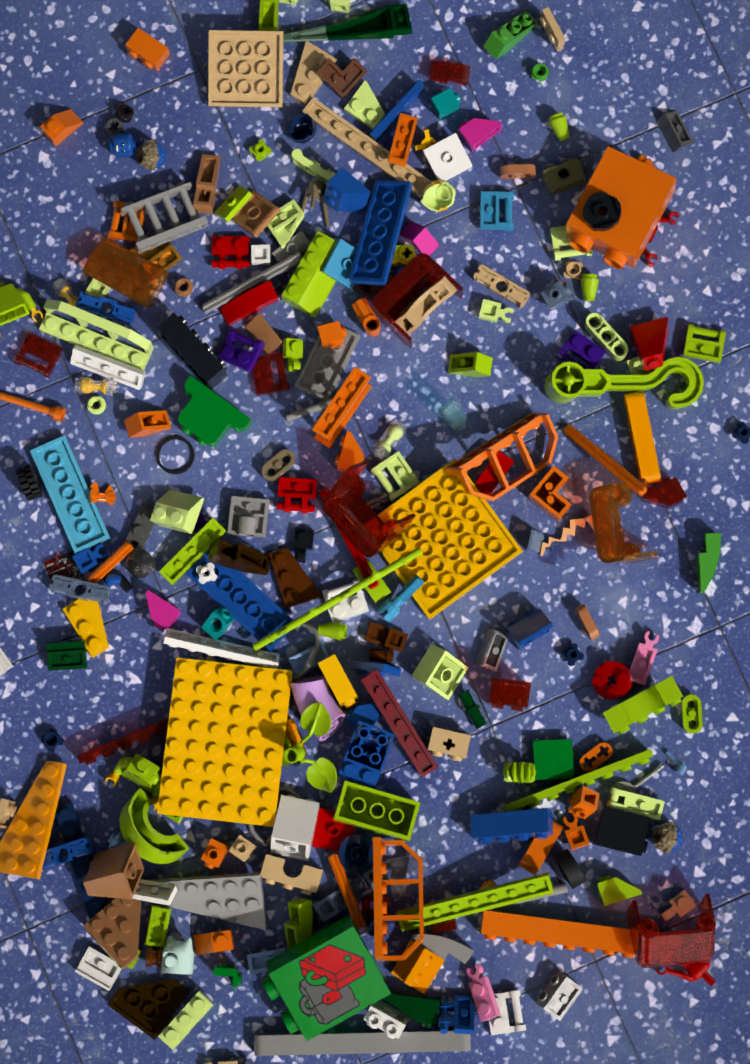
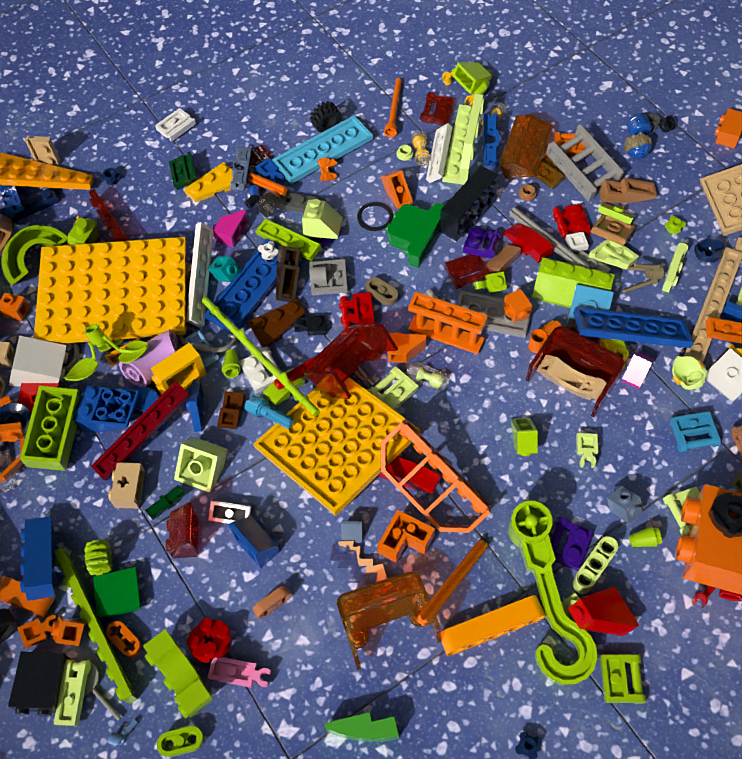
camera: 75 degrees right, 20 degrees down
(60, 126) = (637, 85): orange slope -> none
(97, 289) = (504, 134): yellowish green plate -> none
(242, 848) = (16, 325): tan brick -> none
(346, 193) = (660, 289): blue slope -> none
(381, 655) = (212, 409): reddish brown pin -> none
(452, 415) = (466, 424): clear light blue slope -> none
(513, 292) = (614, 463): tan piece -> none
(567, 654) = (234, 599): dark blue plate -> none
(573, 265) = (658, 513): tan plate -> none
(665, 495) = (432, 664): clear red slope -> none
(667, 837) = (32, 735): dark tan piece -> none

